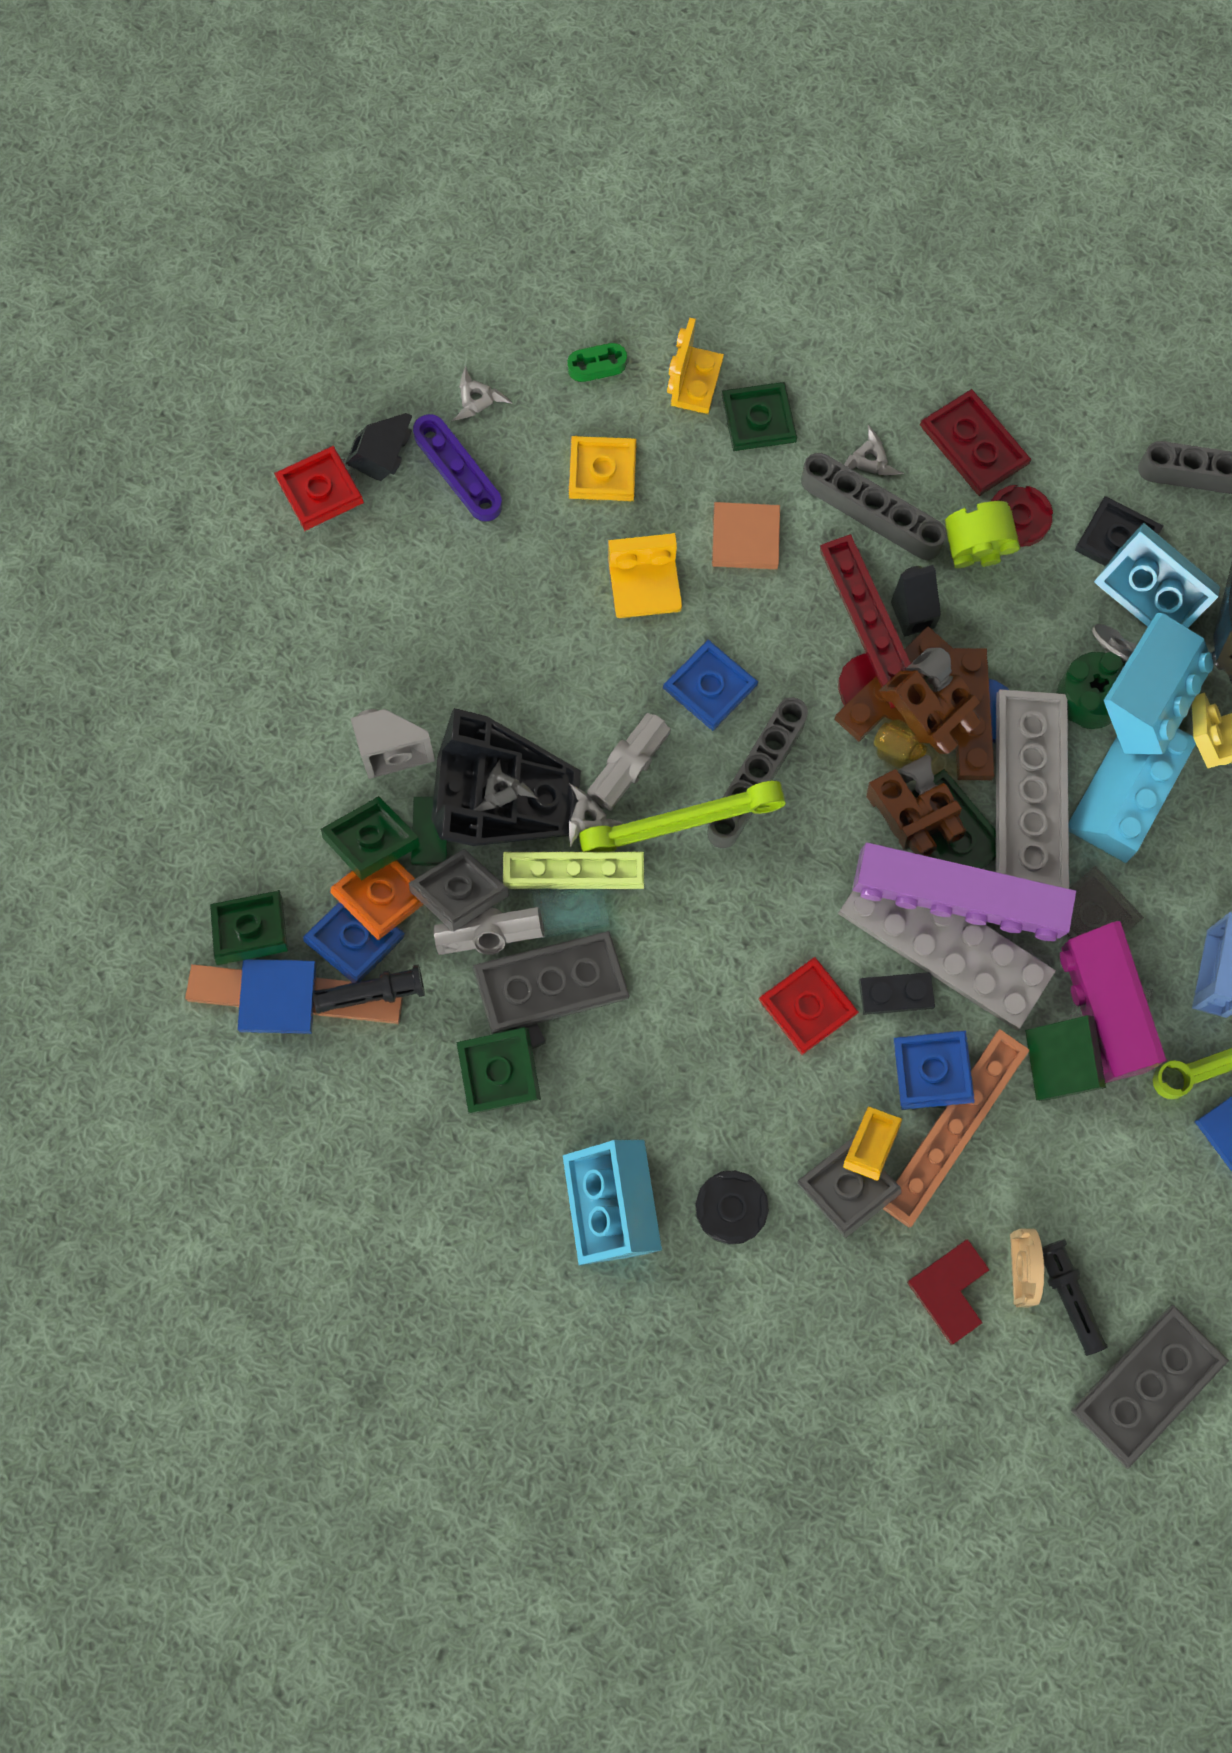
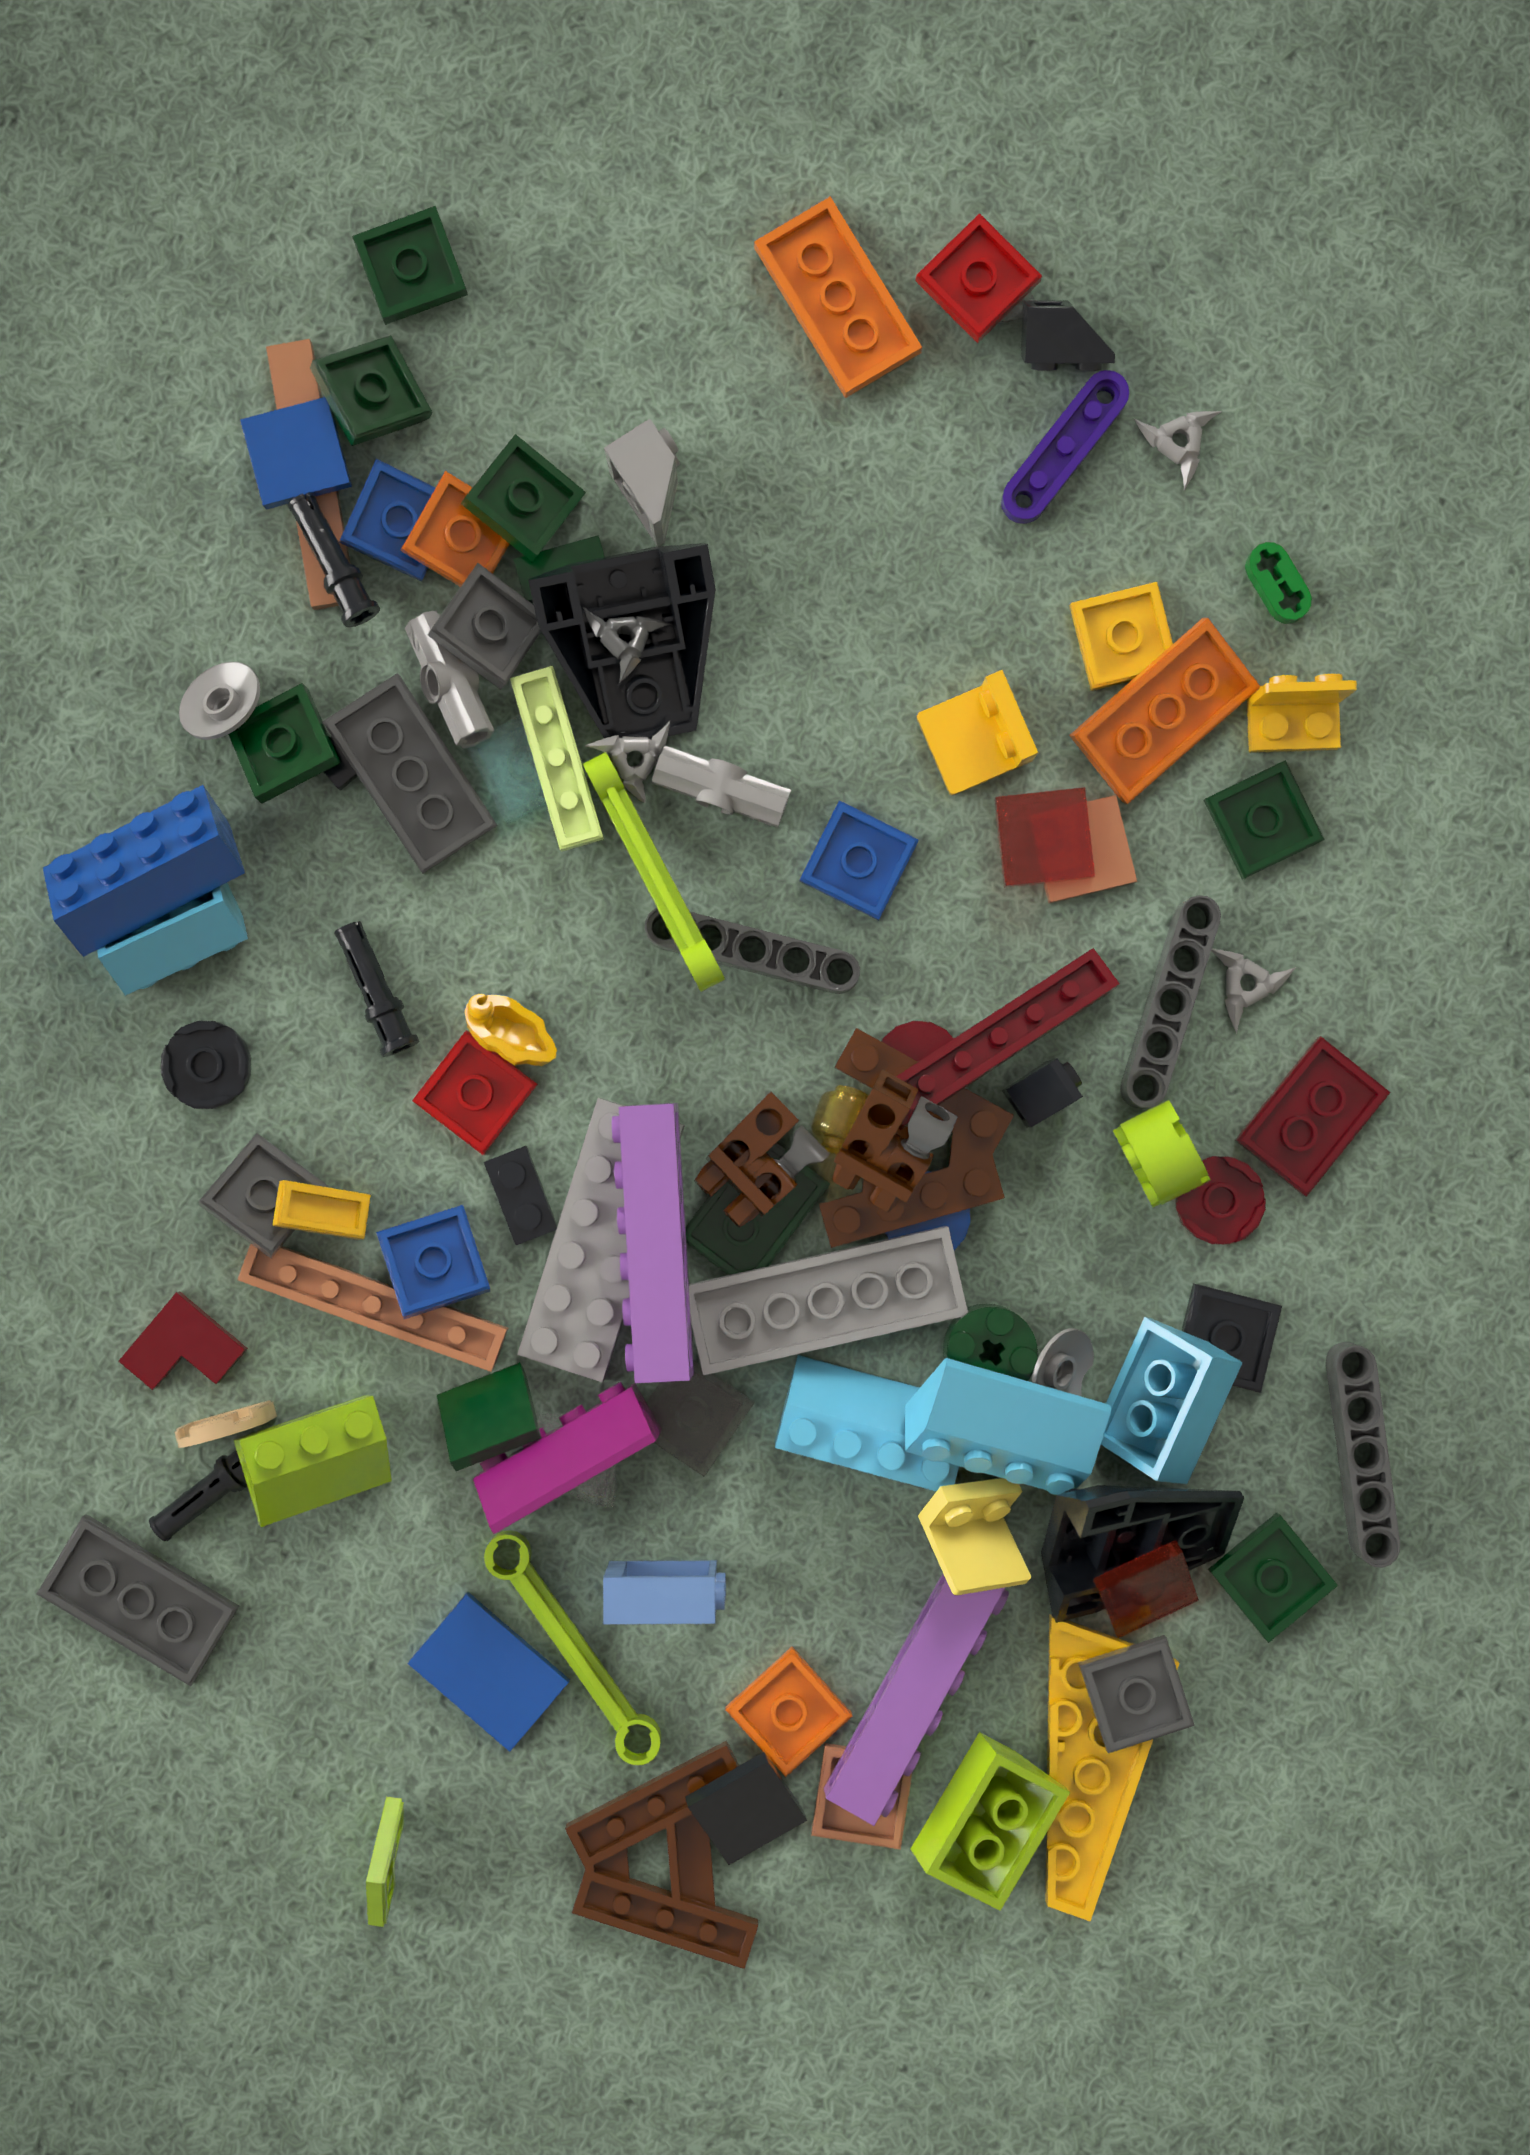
camera: 75 degrees right, 15 degrees up
(162, 874) = (410, 265): none -> dark green plate
(297, 585) = (837, 297): none -> orange plate
(438, 1113) = (219, 700): none -> light grey dish
(569, 1202) = (142, 870): none -> blue brick
(664, 455) = (1165, 710): none -> orange tile
(726, 1054) = (382, 1007): none -> black pin
(732, 553) = (1044, 837): none -> clear red tile
(774, 960) = (518, 1039): none -> yellow arm
(1068, 1200) = (314, 1459): none -> lime slope

